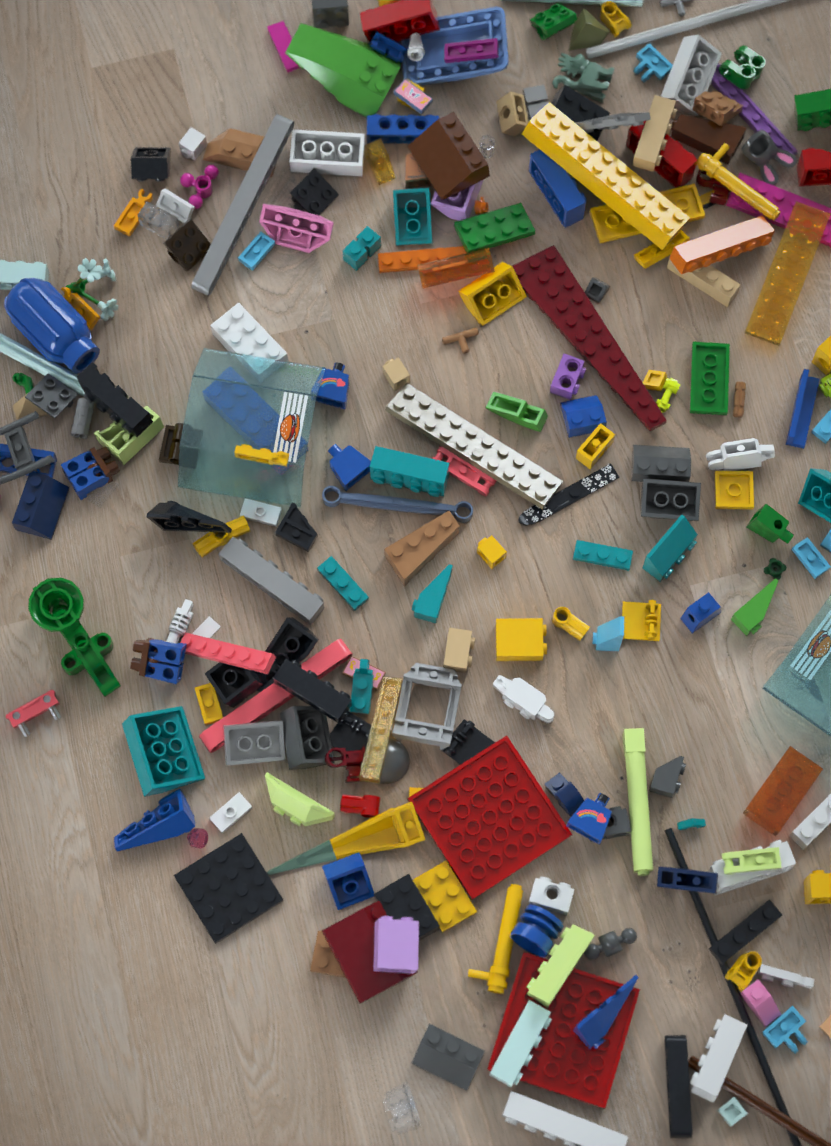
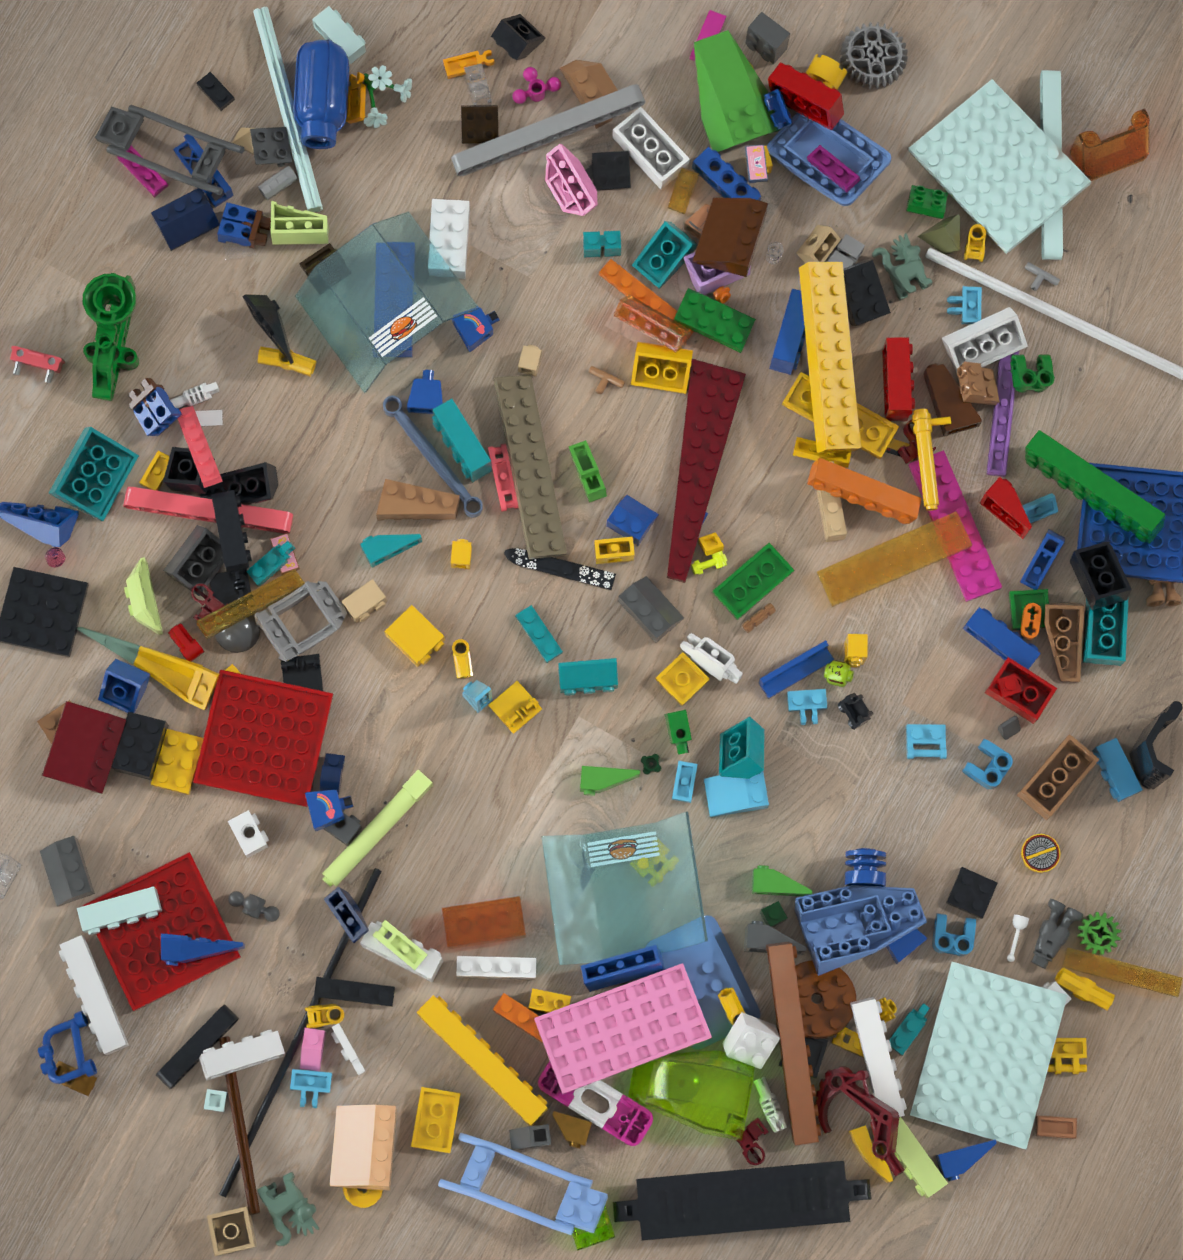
camera: 40 degrees right, 5 degrees up
(24, 381) = (266, 116): green arm -> none
(113, 400) = (304, 190): black wedge -> none
(175, 205) = (501, 85): white plate -> none
(192, 144) = (561, 50): white brick -> none
(230, 812) = (95, 561): white plate -> none
(254, 742) = (157, 528): light grey plate -> none
(256, 251) = (525, 174): medium azure plate -> none
(260, 512) = (332, 370): white plate -> none
(263, 455) = (362, 329): yellow hinge -> none
(271, 580) = (287, 426): light grey brick -> none
(296, 529) = (344, 406): black wing -> none
(342, 583) = (336, 476): teal plate -> none
(396, 945) = (102, 759): lavender brick -> none
(415, 48) = (798, 128): white cone -> none
(500, 969) = (161, 848): yellow cylinder -> none
(524, 698) = (375, 680): white hinge -> none
(536, 930) = (210, 846): blue wheel -> none
(560, 965) = (199, 885): yellowish green slope -> none
(563, 375) = (647, 476): medium lavender brick -> none
(596, 289) = (743, 436): dark grey slope -> none
(614, 121) = (877, 320): light grey plate -> none
(654, 132) = (897, 359): tan brick -> none
(666, 778) = (414, 832): dark grey slope -> none
(670, 499) = (625, 641): dark grey slope -> none
(693, 822) = (397, 882): teal tile -> none
(702, 611) = (563, 742): blue torso -> none
(761, 149) = (976, 447): dark grey piece -> none

